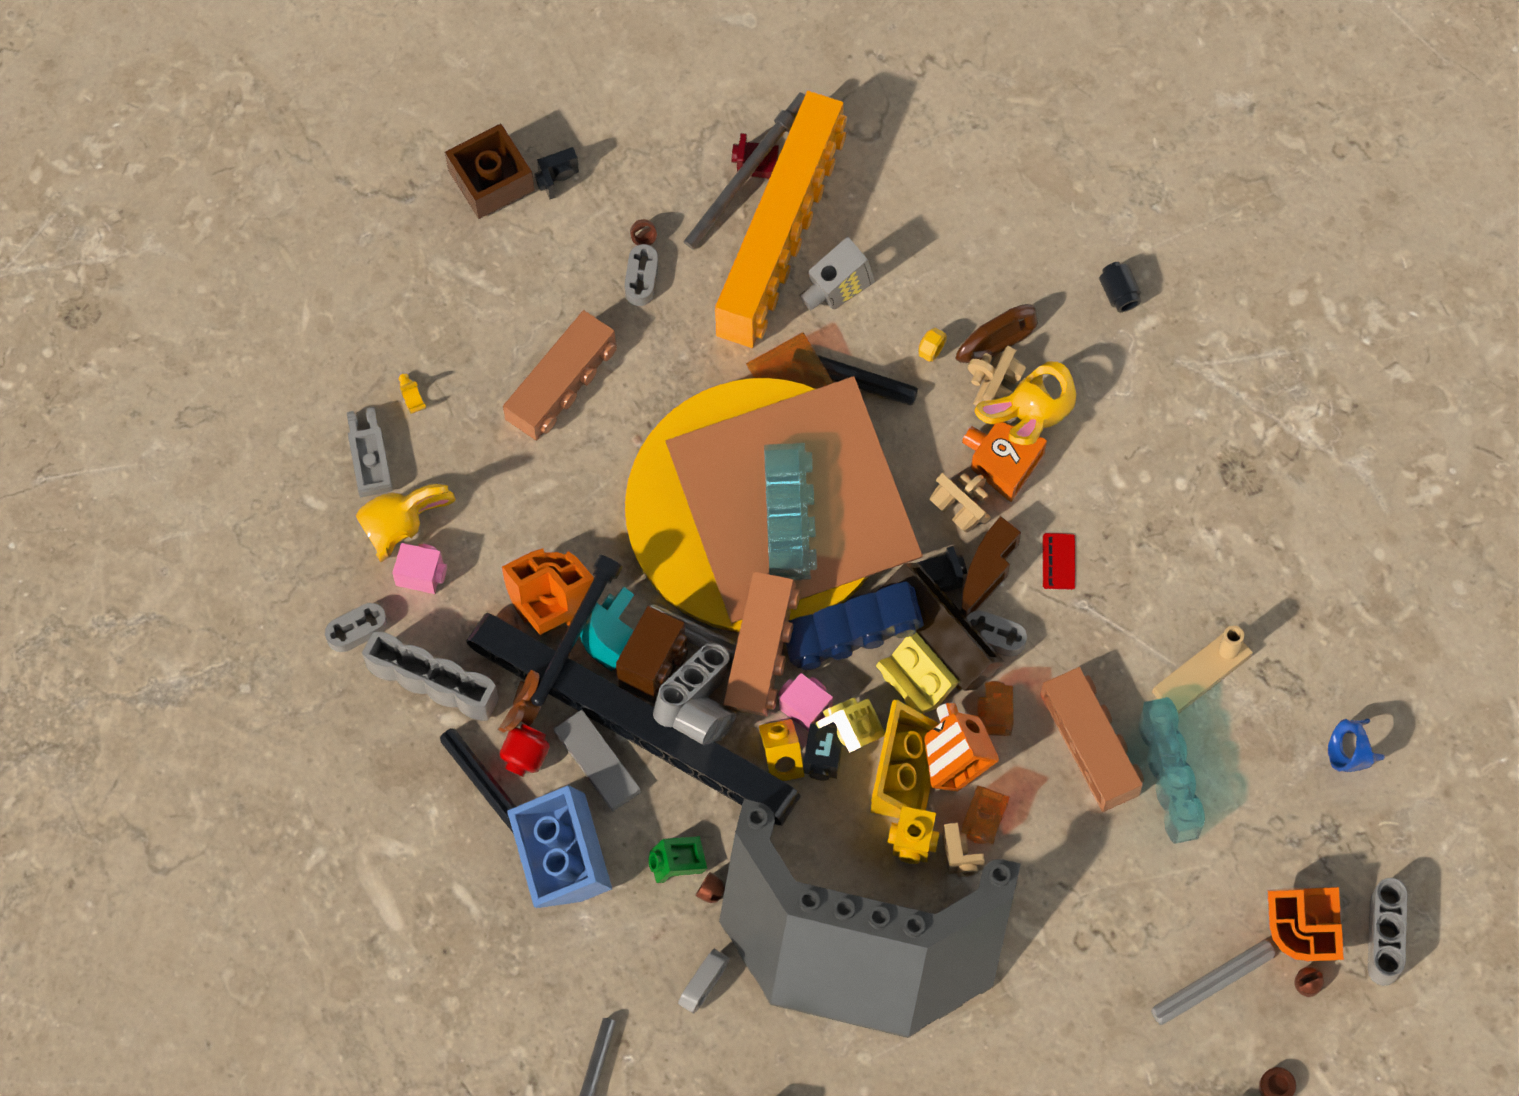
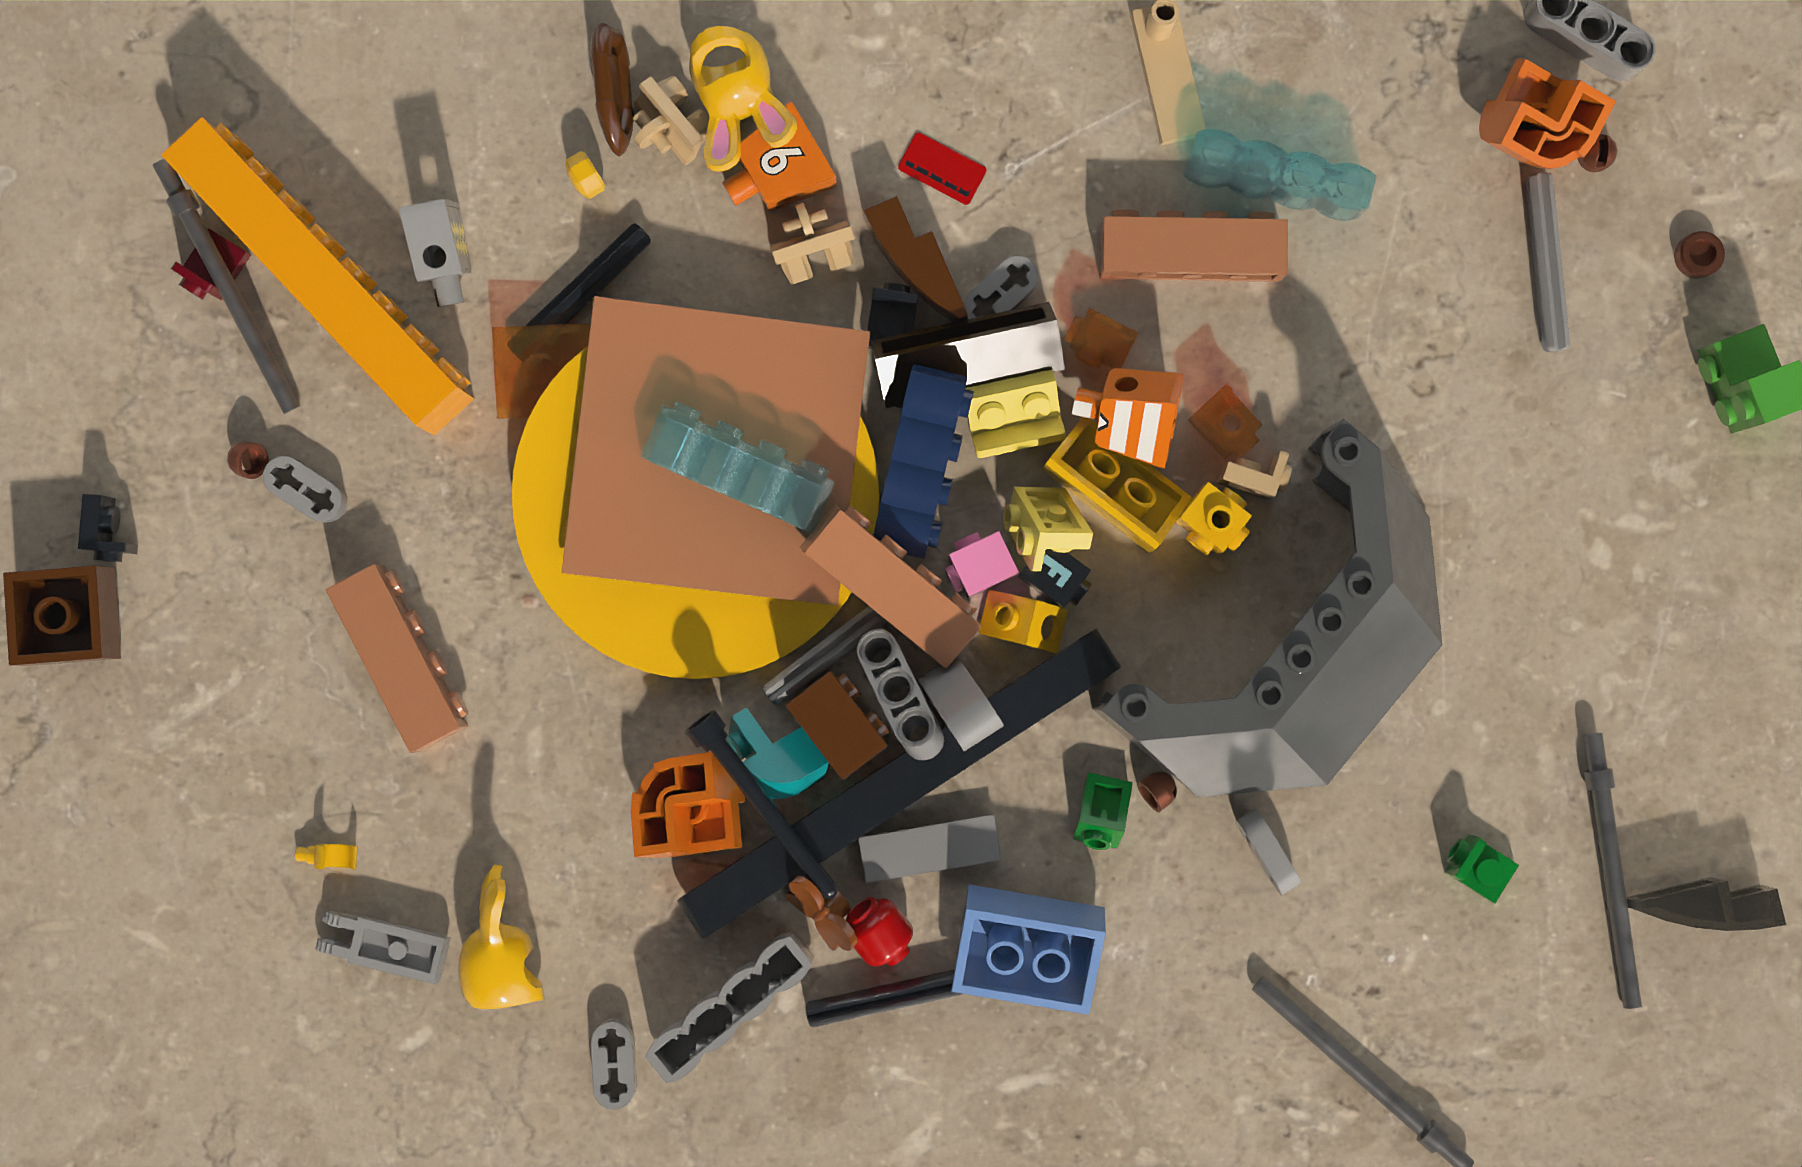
camera: 65 degrees left, 20 degrees up
(419, 568) = (574, 951): bright pink brick -> none

